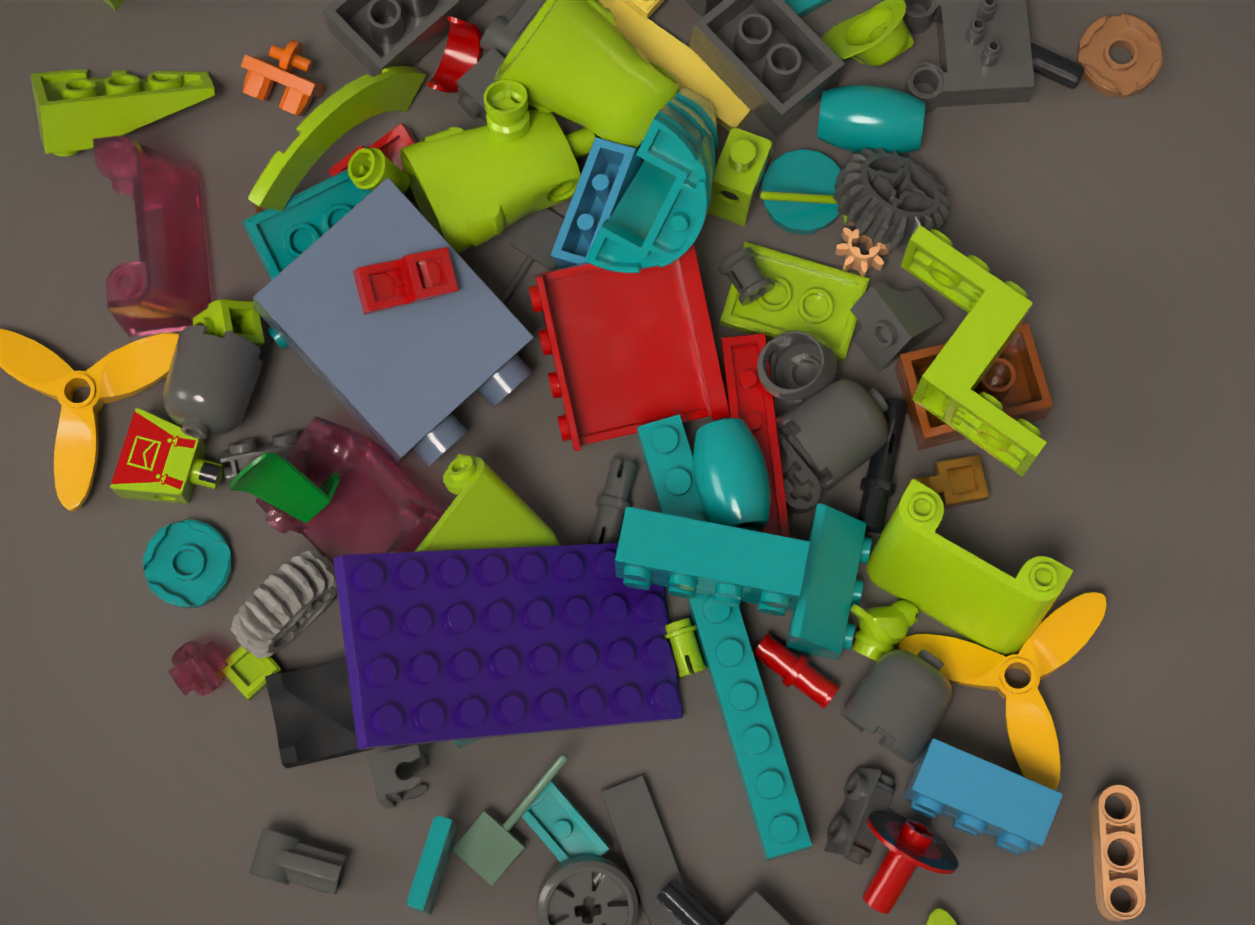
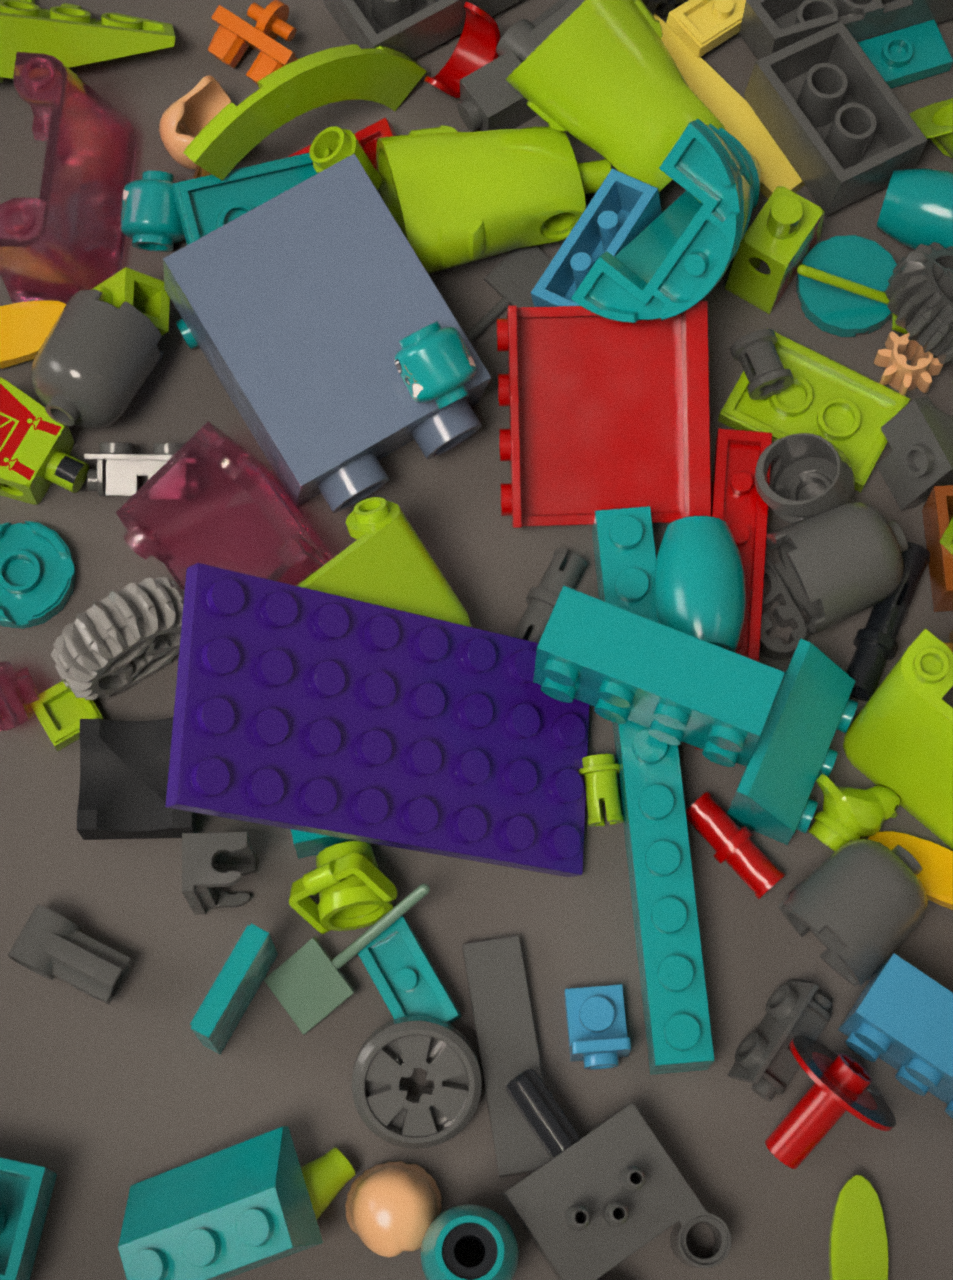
camera: 10 degrees right, 5 degrees down
(227, 242) = (151, 212): none -> teal head
(251, 146) = (189, 115): none -> light nougat hair
(285, 487) = (151, 495): green piece -> none
(405, 280) = (350, 277): red slope -> none
(488, 340) = (435, 365): none -> teal head
(503, 767) = (349, 889): none -> lime piece
(507, 110) = (513, 111): lime wheel -> none
(717, 833) = (597, 1026): none -> dark azure bracket

